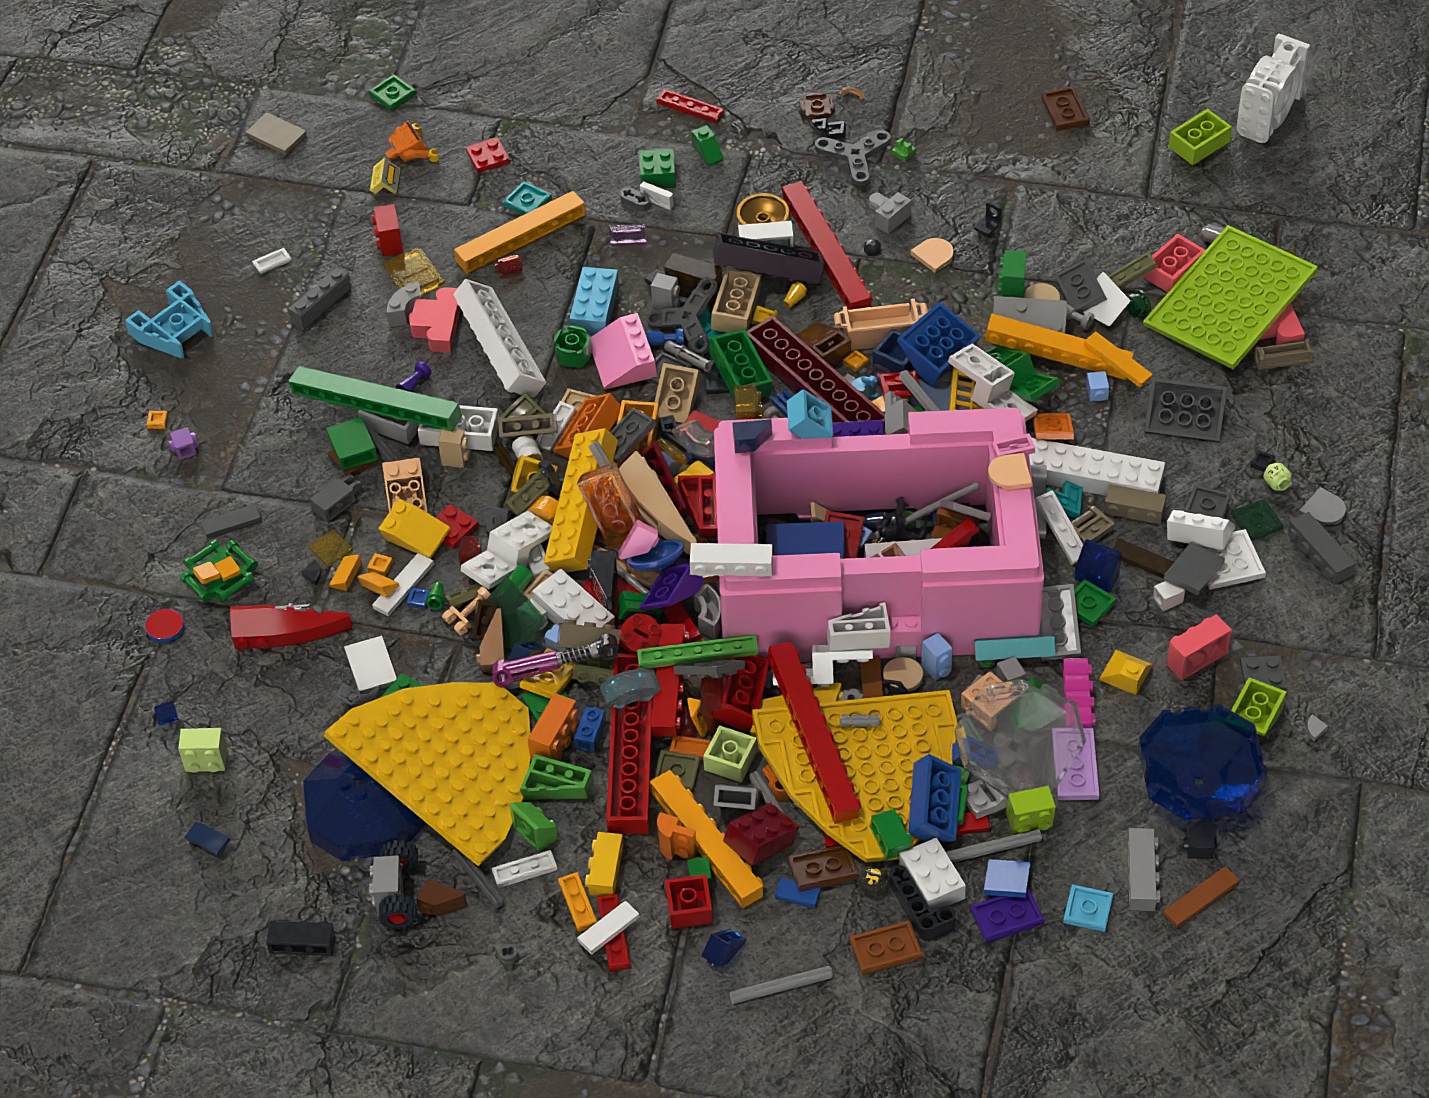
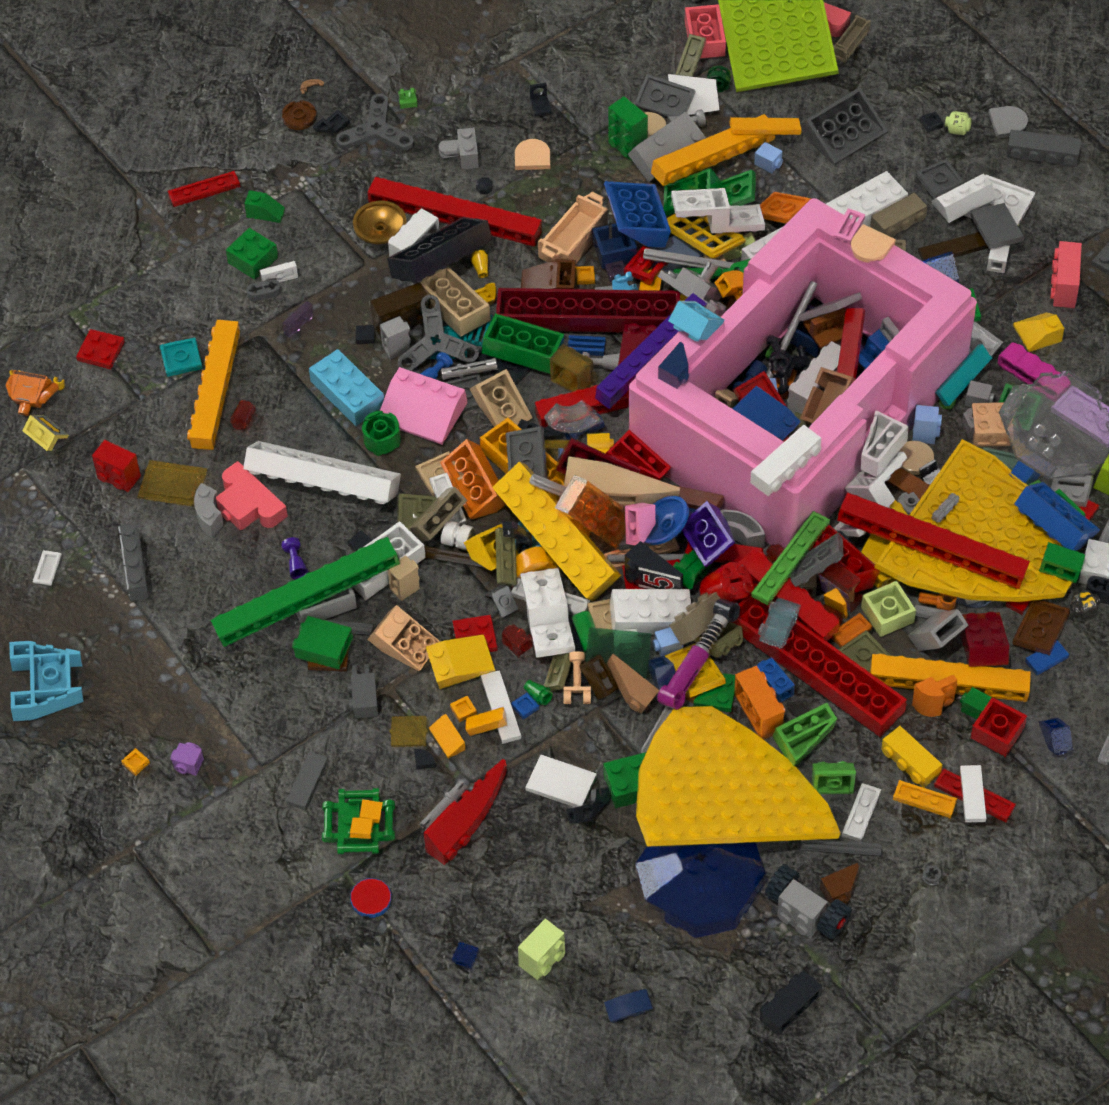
camera: 50 degrees left, 5 degrees up
(1257, 519) = (978, 162): clear green tile -> none

